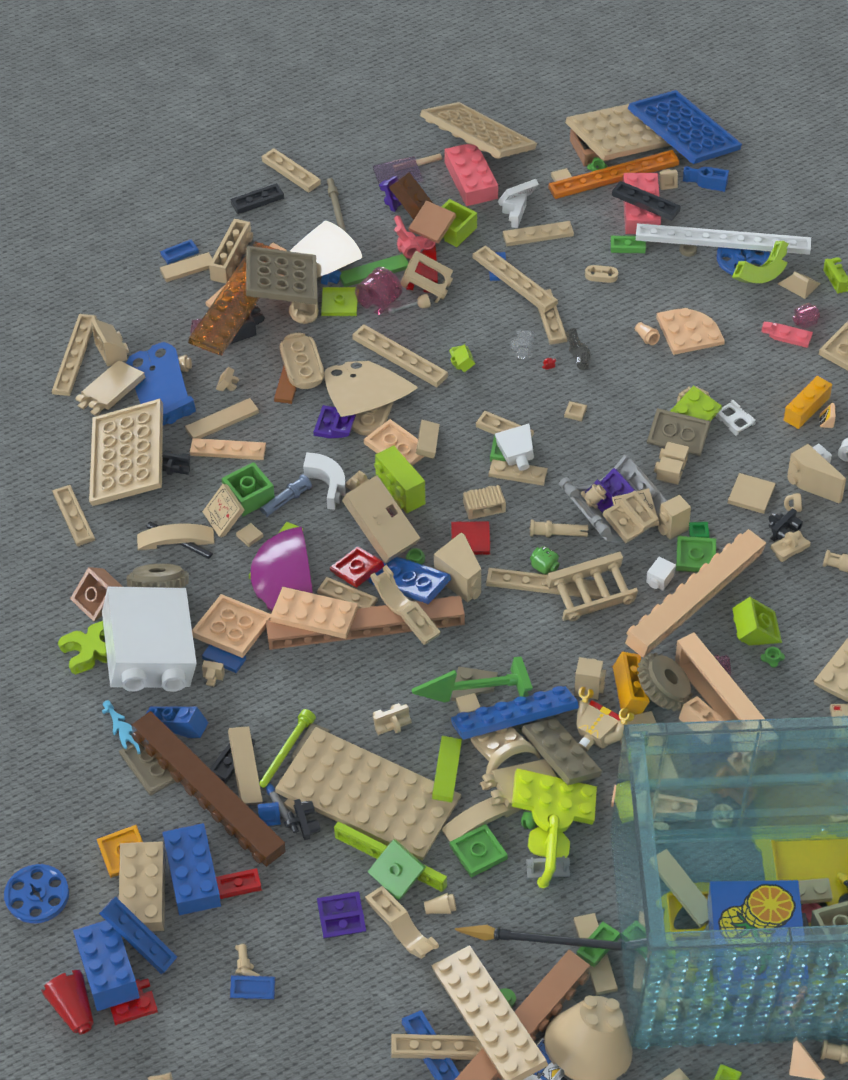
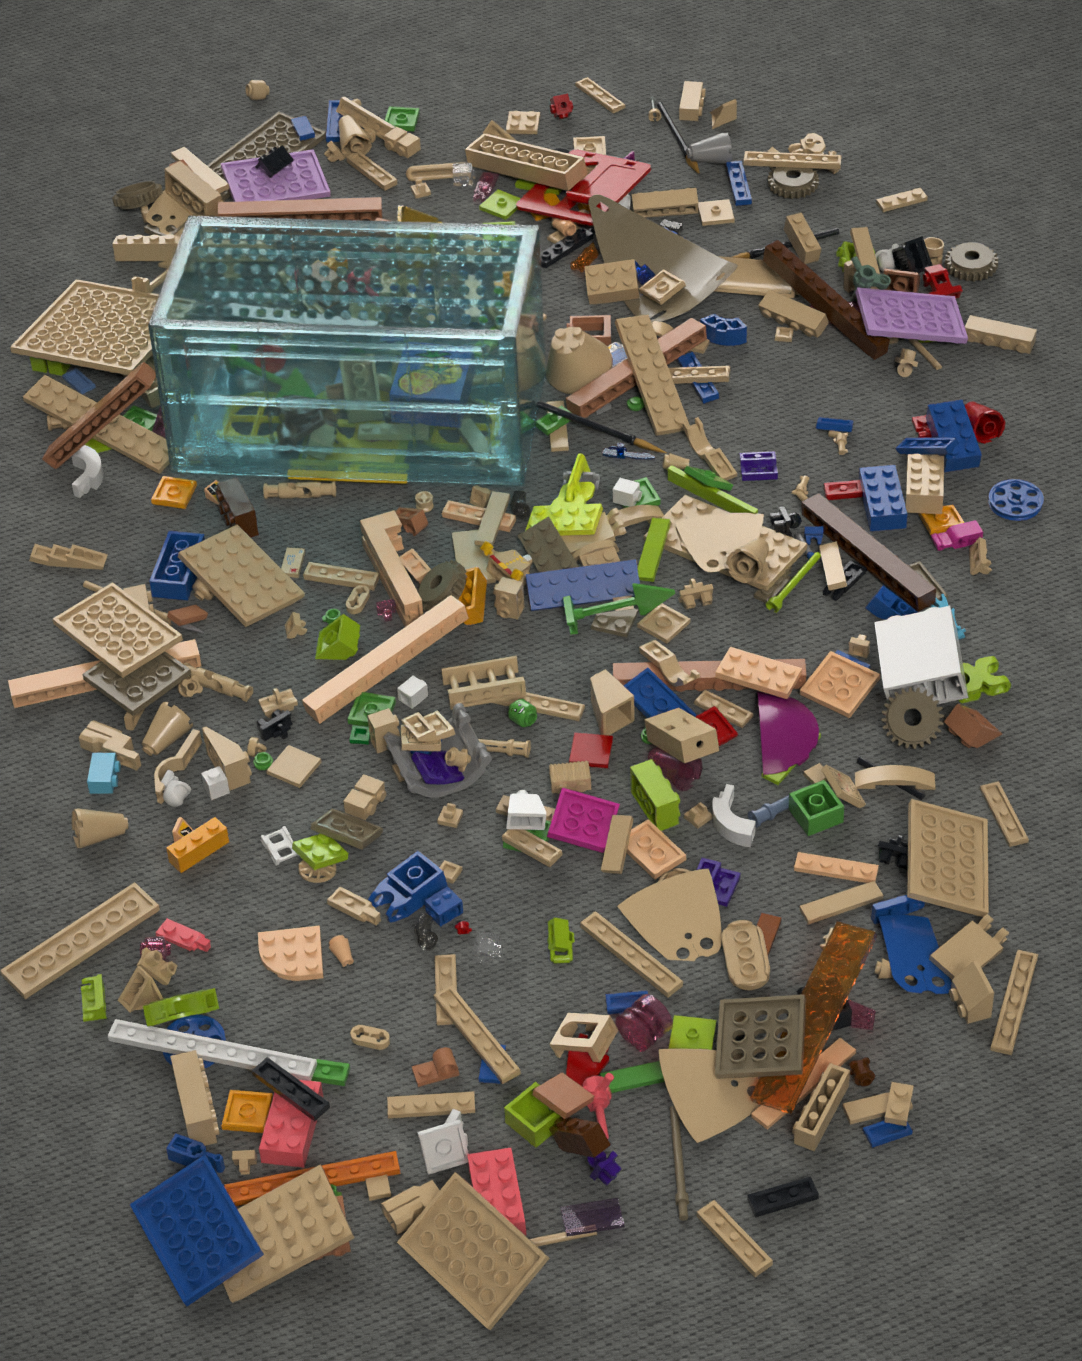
camera: 170 degrees left, 5 degrees down
(83, 799) = (978, 559): none -> tan plate
(104, 825) = (958, 536): none -> dark pink piece
(170, 263) = (899, 1104): none -> tan plate
(200, 284) = (862, 1072): none -> reddish brown brick
(287, 882) = (801, 488): none -> tan piece
(334, 734) = (748, 561): none -> tan cone
(372, 792) = (717, 533): none -> tan piece
(396, 321) = (619, 1002): none -> blue tile
(416, 677) = (664, 623): none -> tan tile
(463, 460) = (582, 820): none -> dark pink plate
(488, 831) = (626, 492): none -> white brick
(510, 918) = (621, 452): none -> piece
(526, 167) = (408, 1205): none -> tan plate
(536, 257) = (439, 1069): none -> nougat plate
(570, 374) = (444, 906): none -> blue head
(588, 459) = (450, 816): none -> tan tile
(603, 384) = (409, 886): none -> blue brick
(605, 811) = (519, 505): none -> clear smoke arm
(649, 370) = (354, 906): none -> tan hinge
(687, 216) = (247, 1111): none -> light orange plate
(721, 201) = (195, 1097): none -> tan brick
(759, 682) = (354, 597): none -> tan beam
(781, 492) = (262, 761): none -> bright green plate
(787, 705) = (340, 575): none -> tan plate
(800, 295) = (156, 967): none -> tan hips
(809, 638) = (295, 626): none -> tan tile

